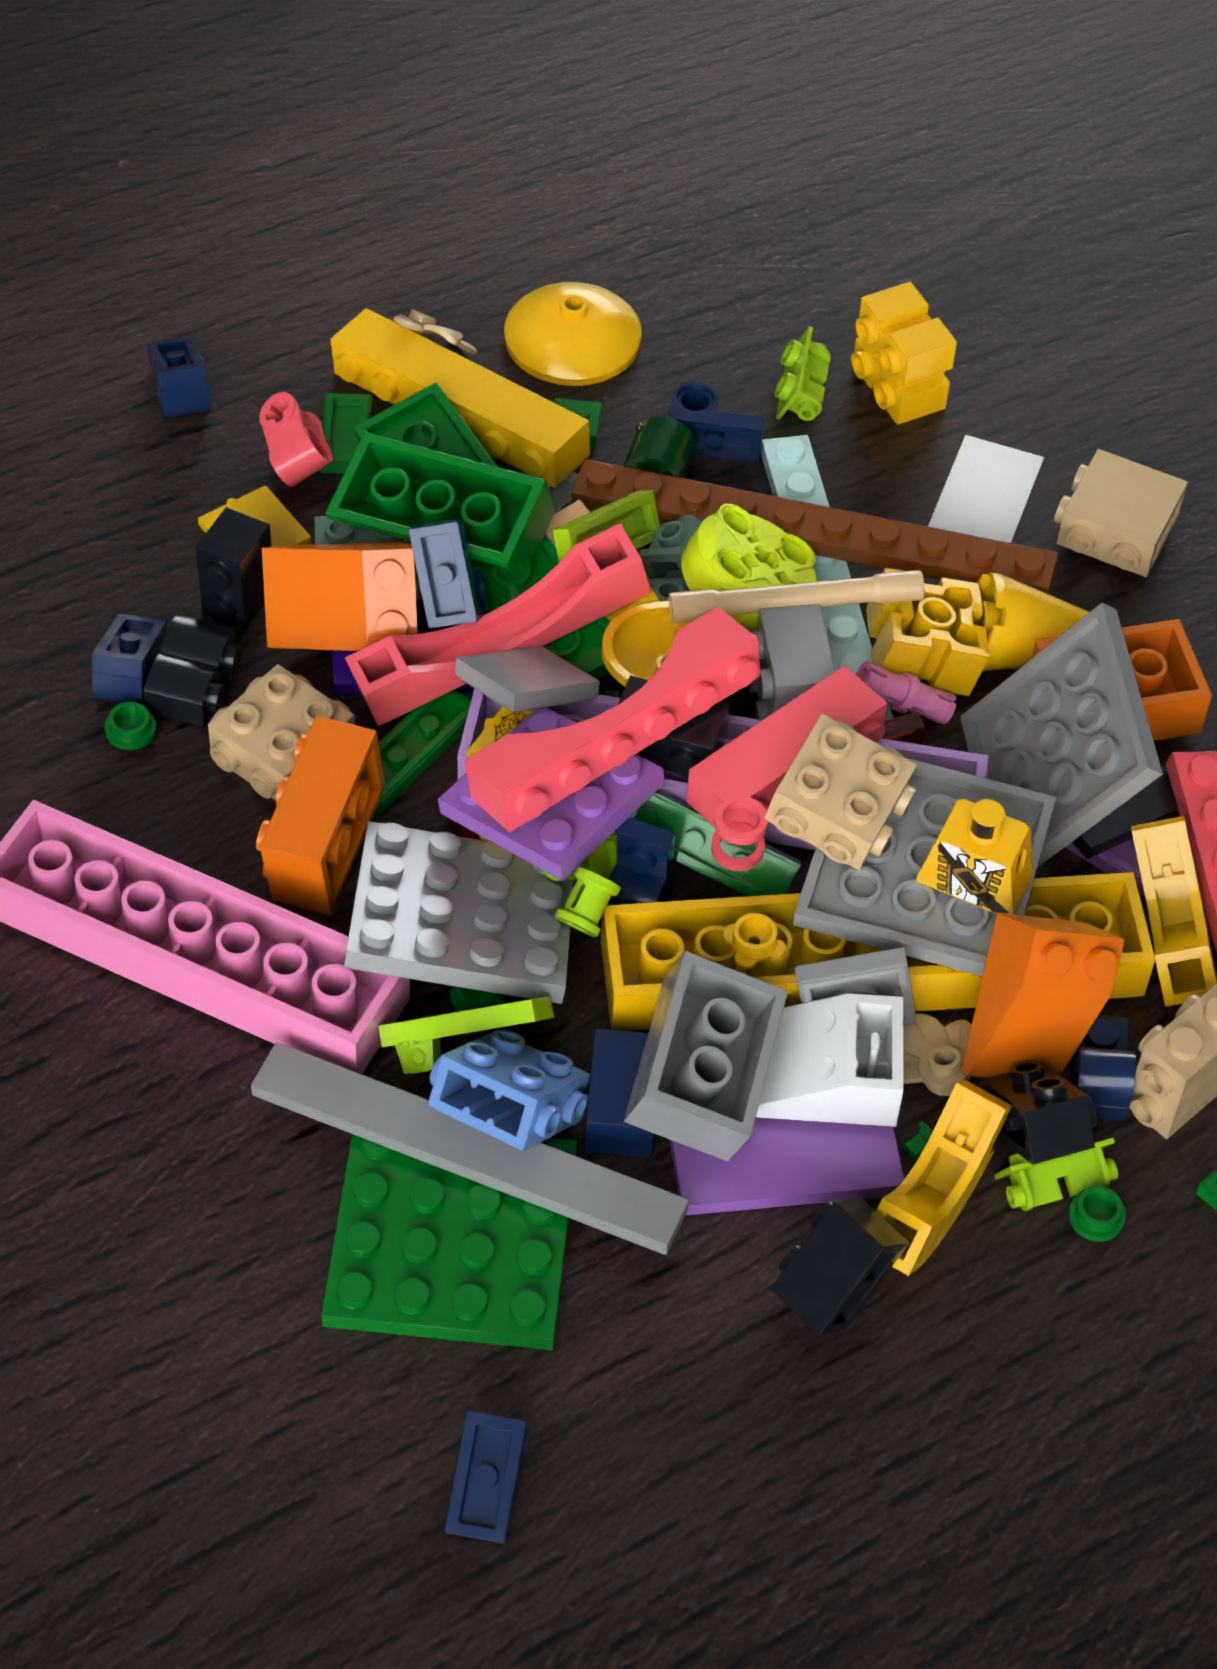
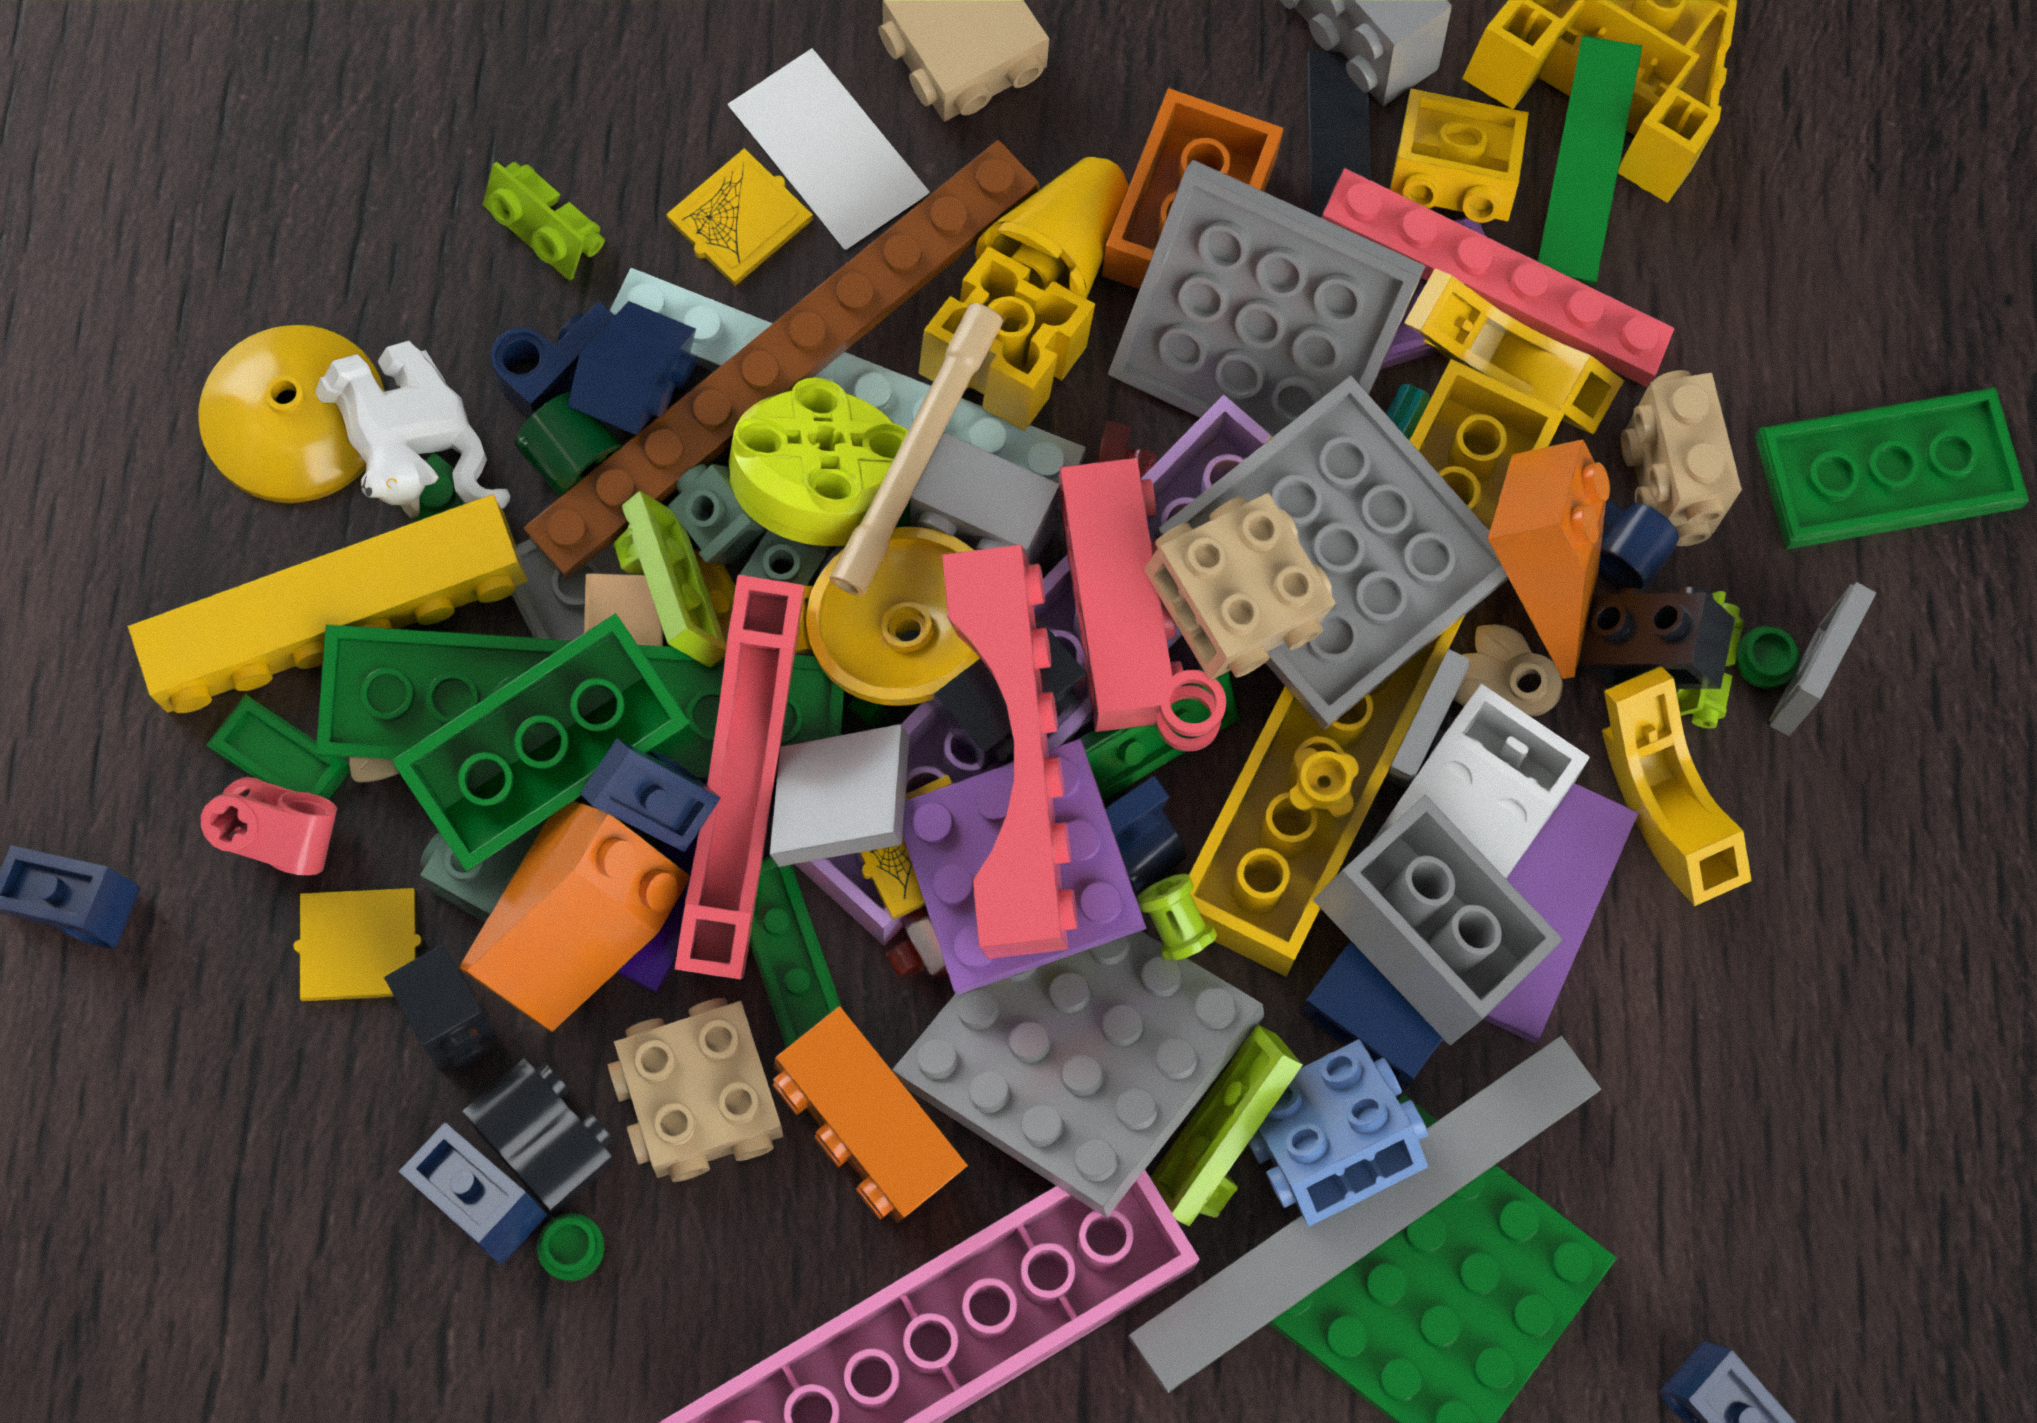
camera: 60 degrees left, 20 degrees up
(425, 326) = (190, 582): tan plate -> none
(603, 369) = (405, 422): none -> white animal
(734, 451) = (633, 368): none -> dark blue brick
(838, 1264) = (1717, 941): black brick -> none
(894, 477) = (739, 217): none -> yellow piece
(903, 353) = (604, 95): yellow brick -> none
(908, 693) = (1063, 413): bright pink pin -> none
(917, 1144) = (1593, 769): green piece -> none
(981, 857) = (1410, 509): yellow torso -> none
(1116, 1228) = (1821, 658): none -> light grey tile

